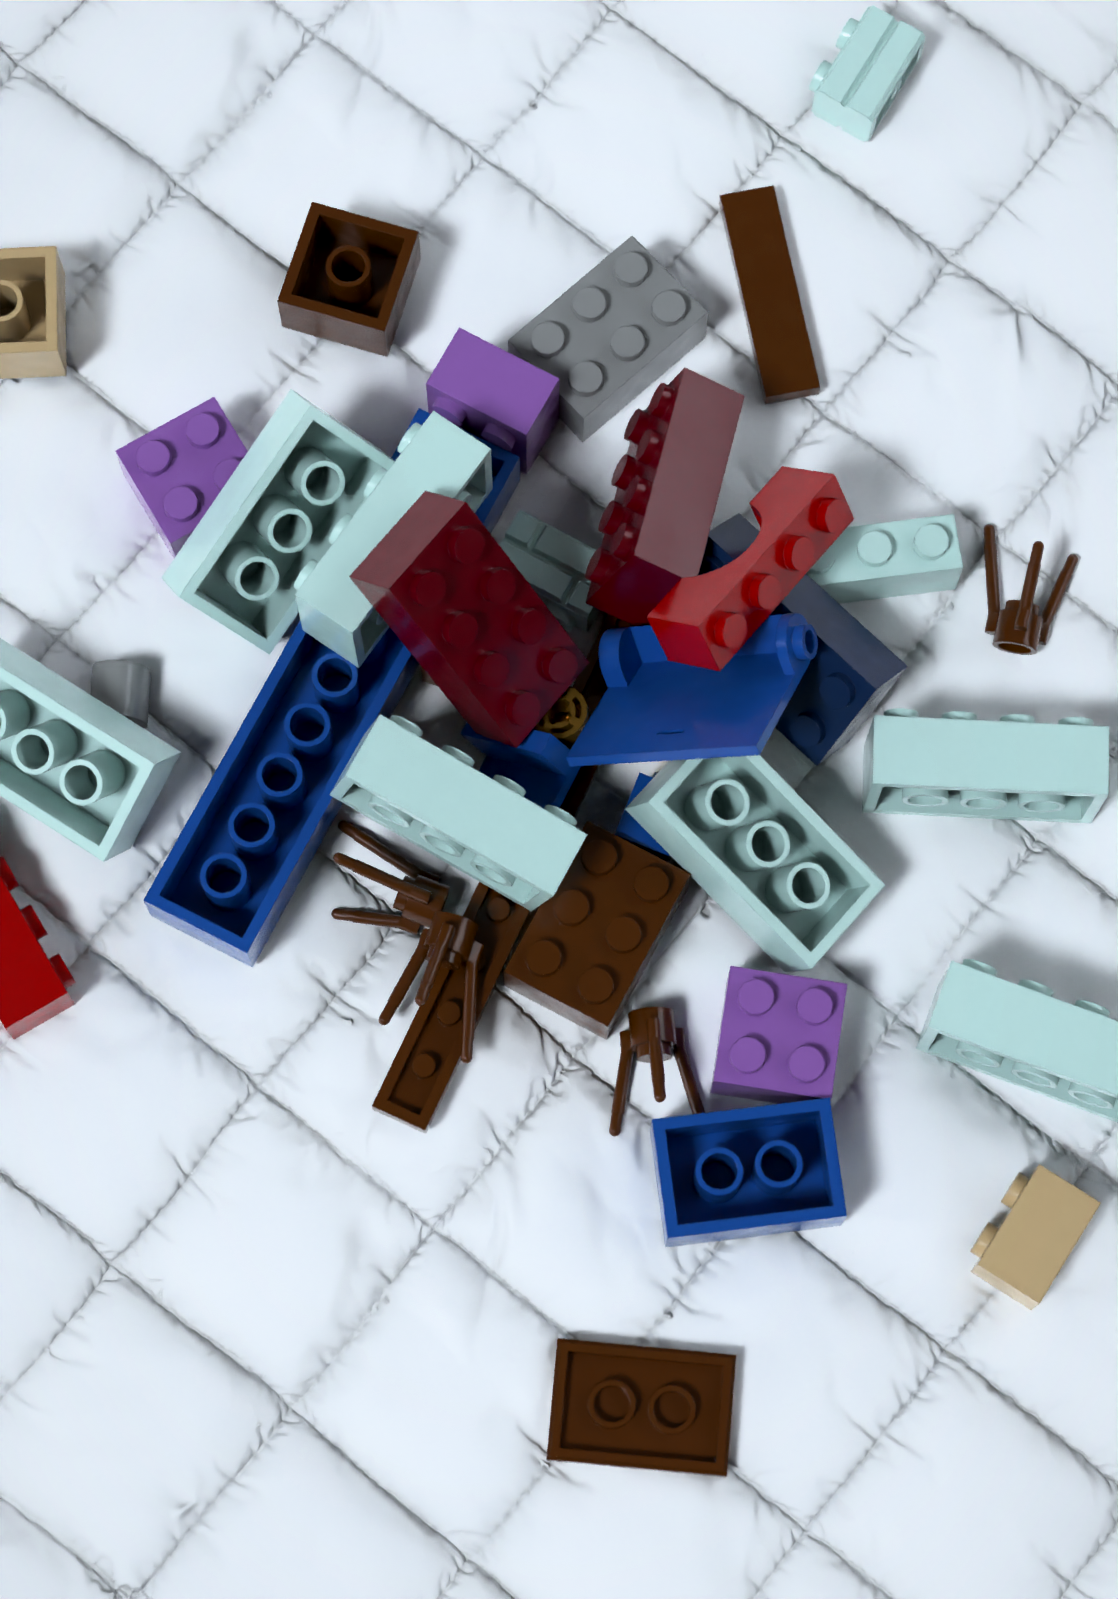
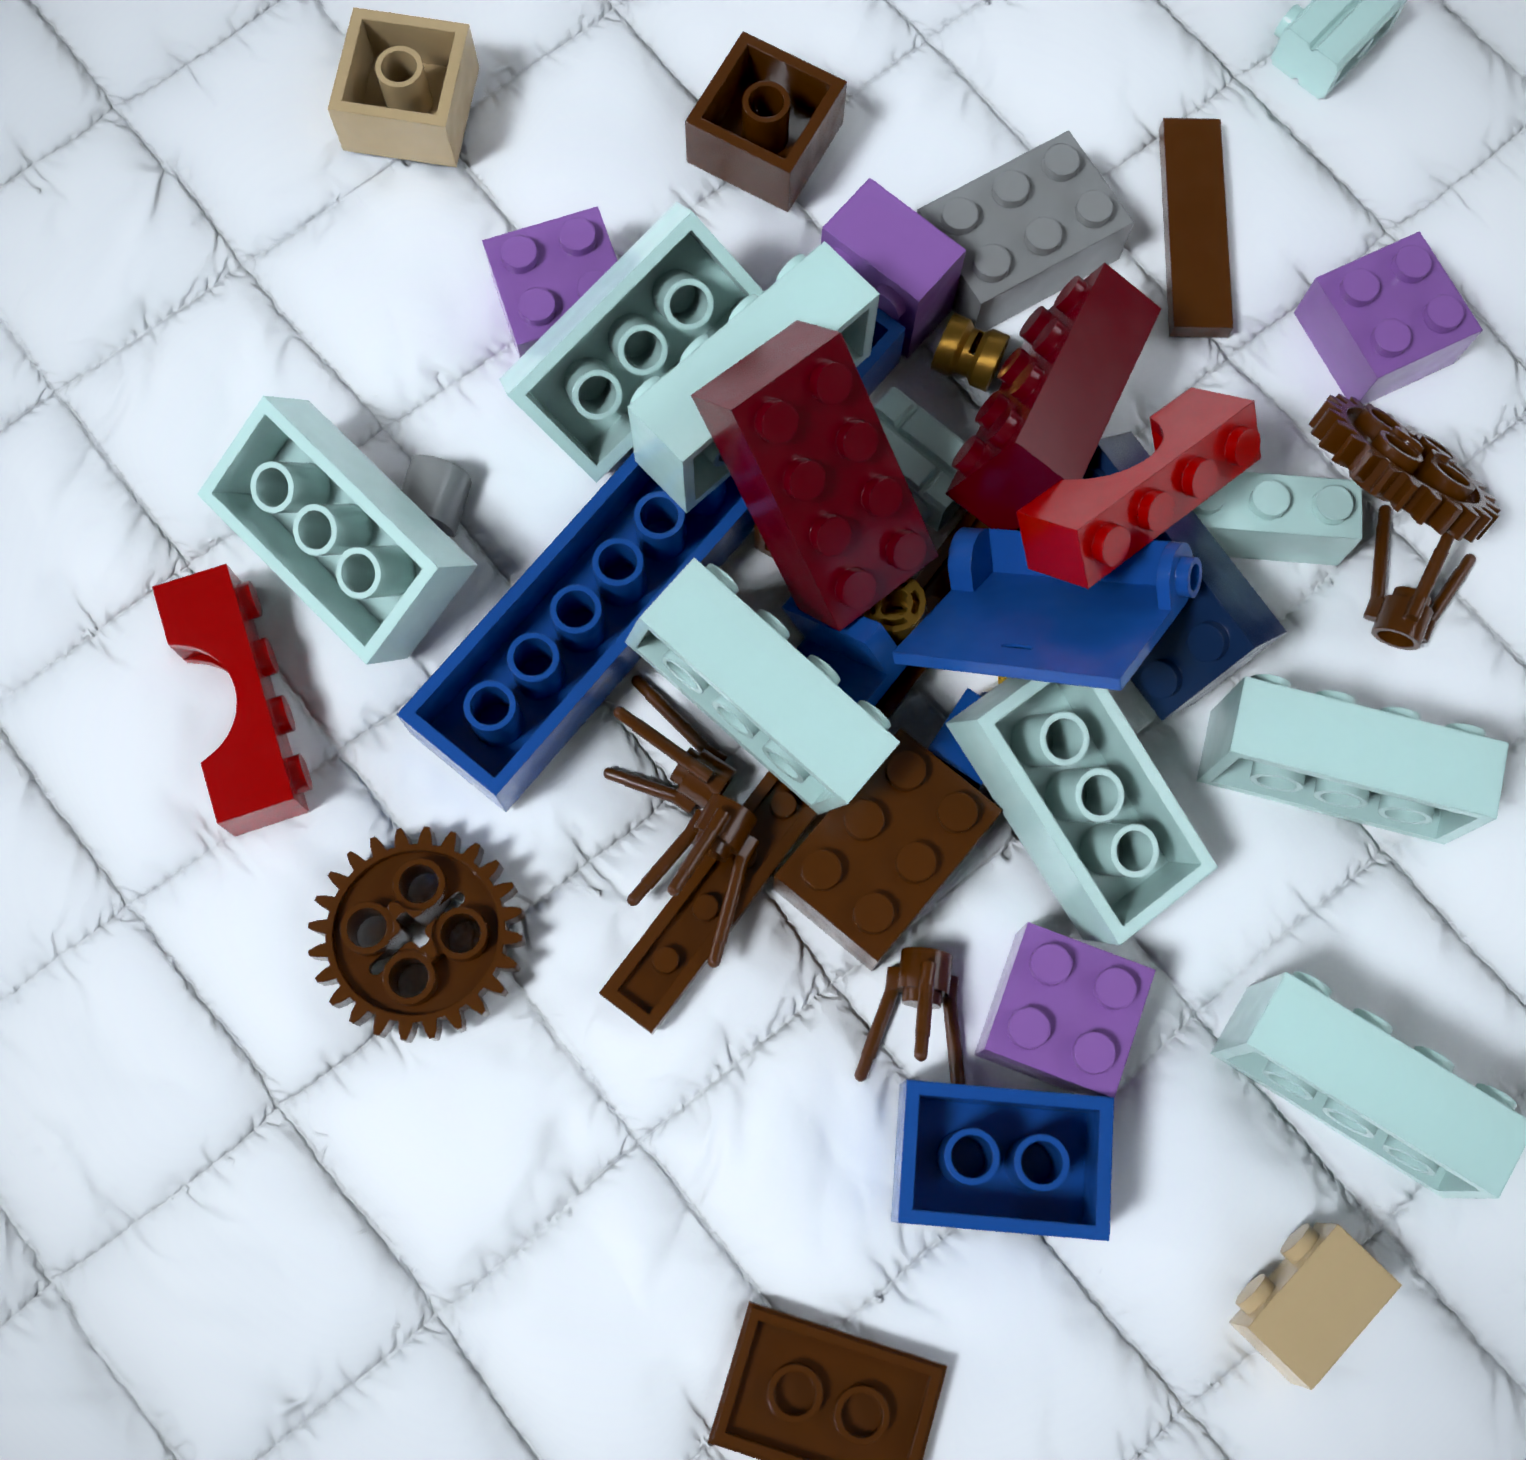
camera: 10 degrees right, 0 degrees up
(158, 1058) = (454, 978): none -> reddish brown gear
(570, 459) = (956, 350): none -> pearl gold wheel
(957, 353) = (1387, 319): none -> medium lavender brick
(988, 495) = (1404, 468): none -> reddish brown gear

